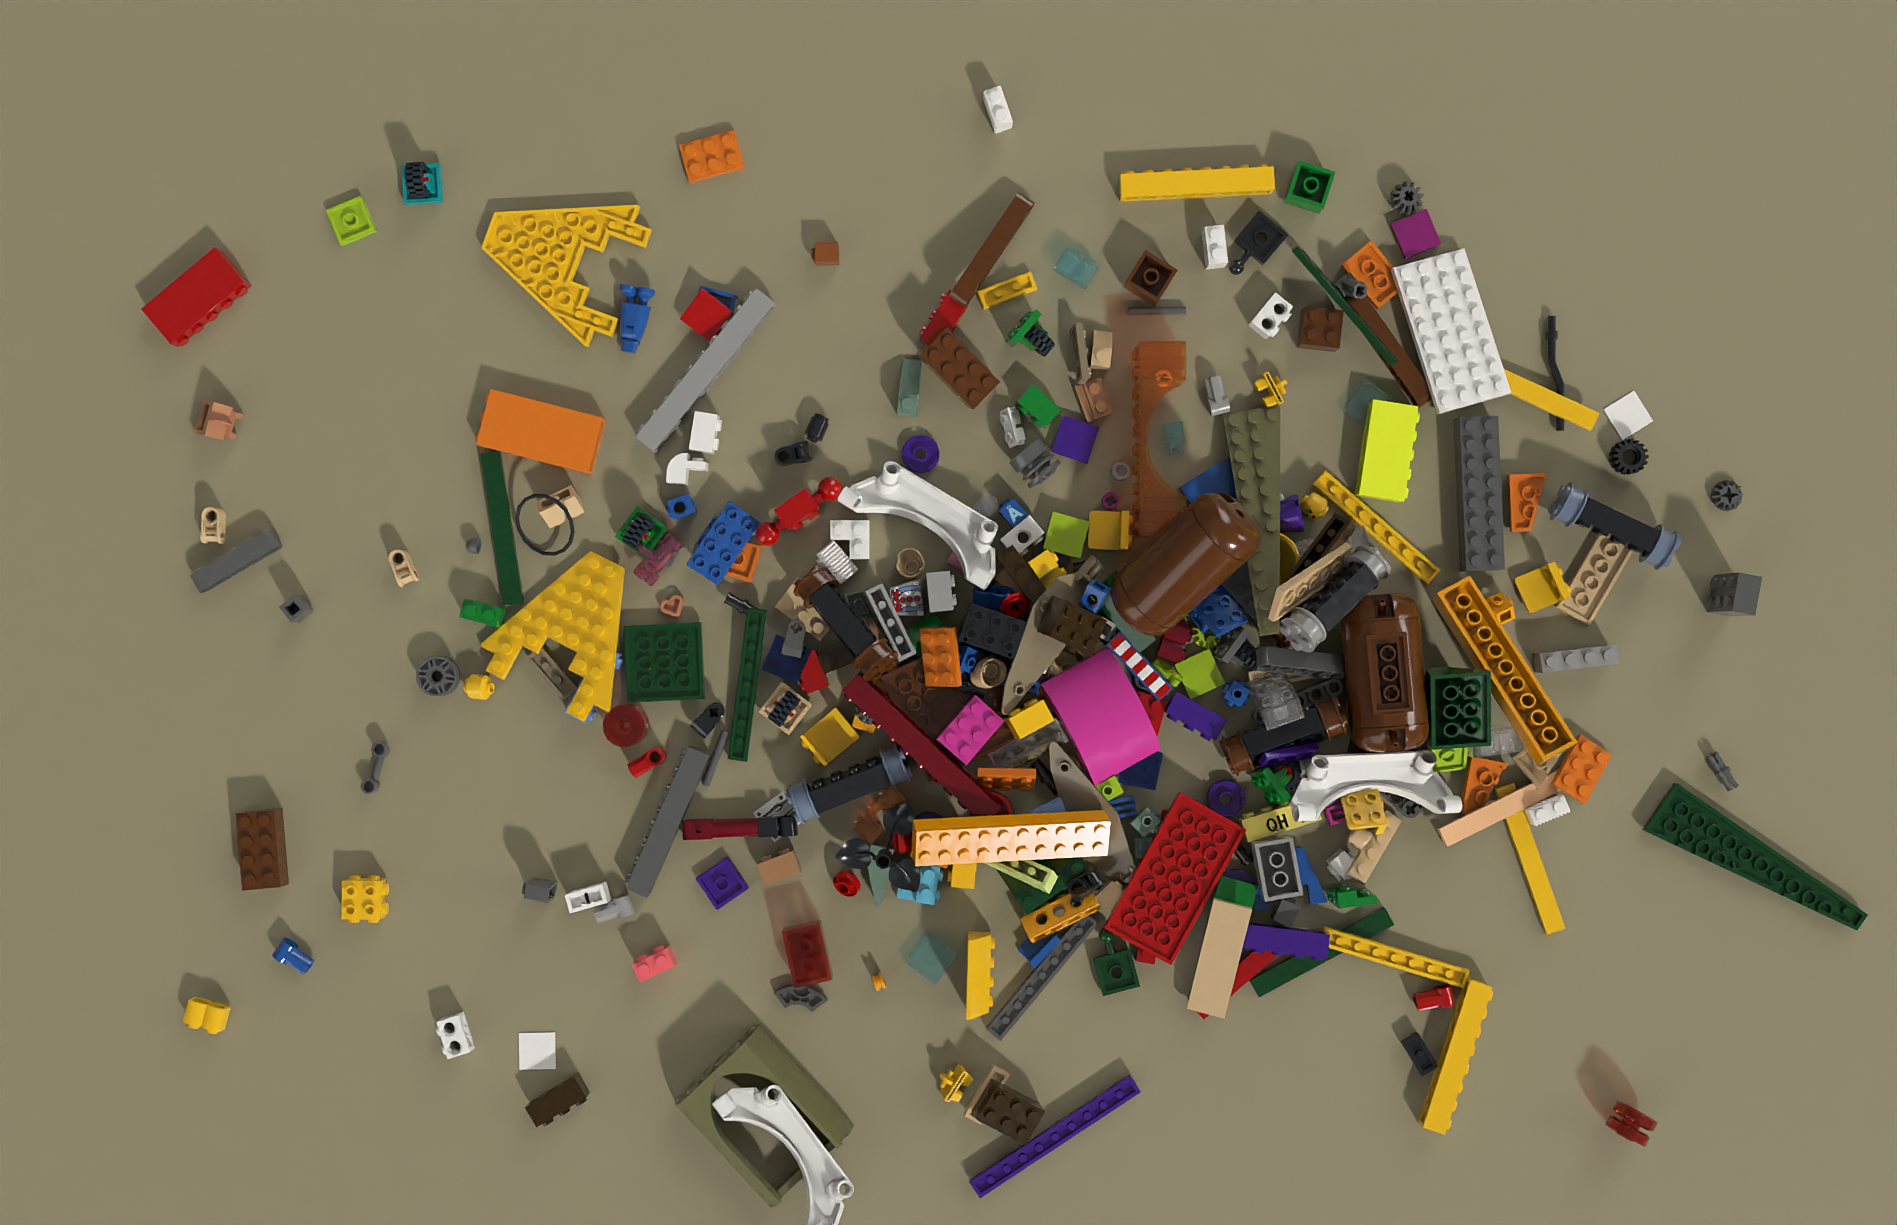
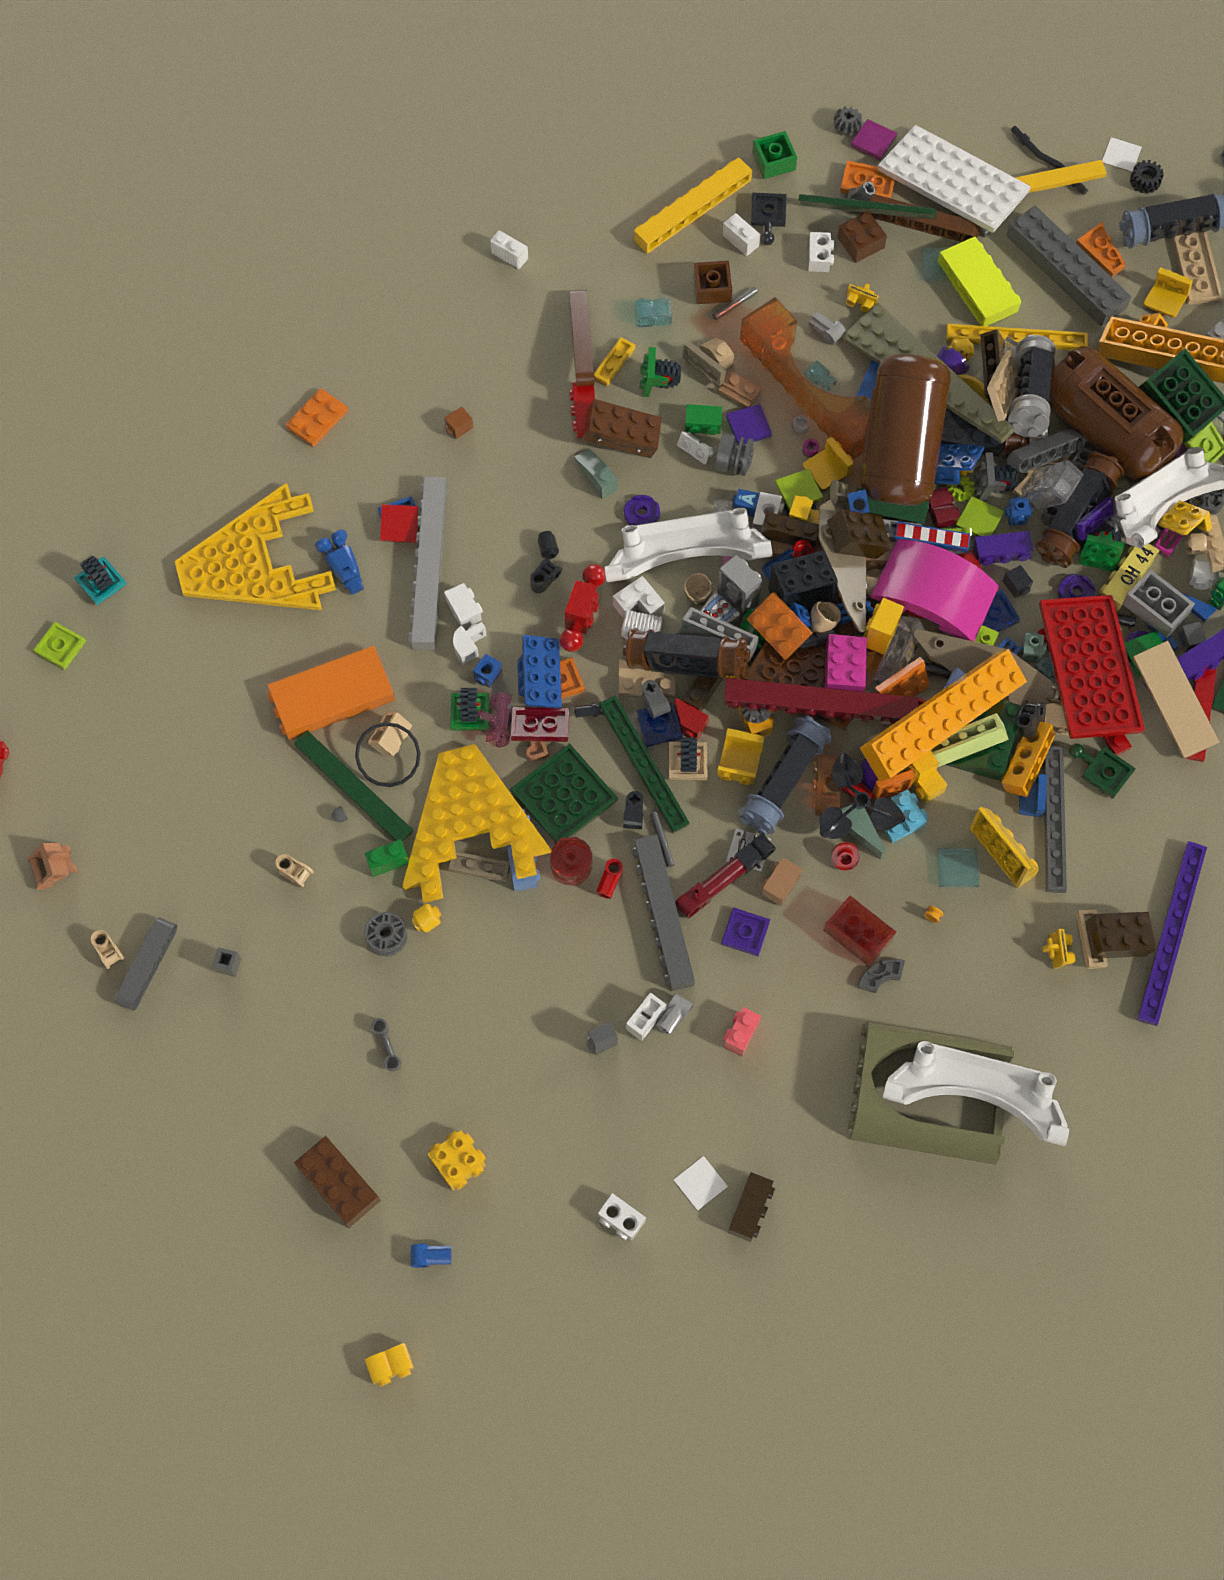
camera: 35 degrees left, 20 degrees down
(688, 588) = (540, 724): none -> plate
(1182, 755) = (1018, 581): none -> black brick

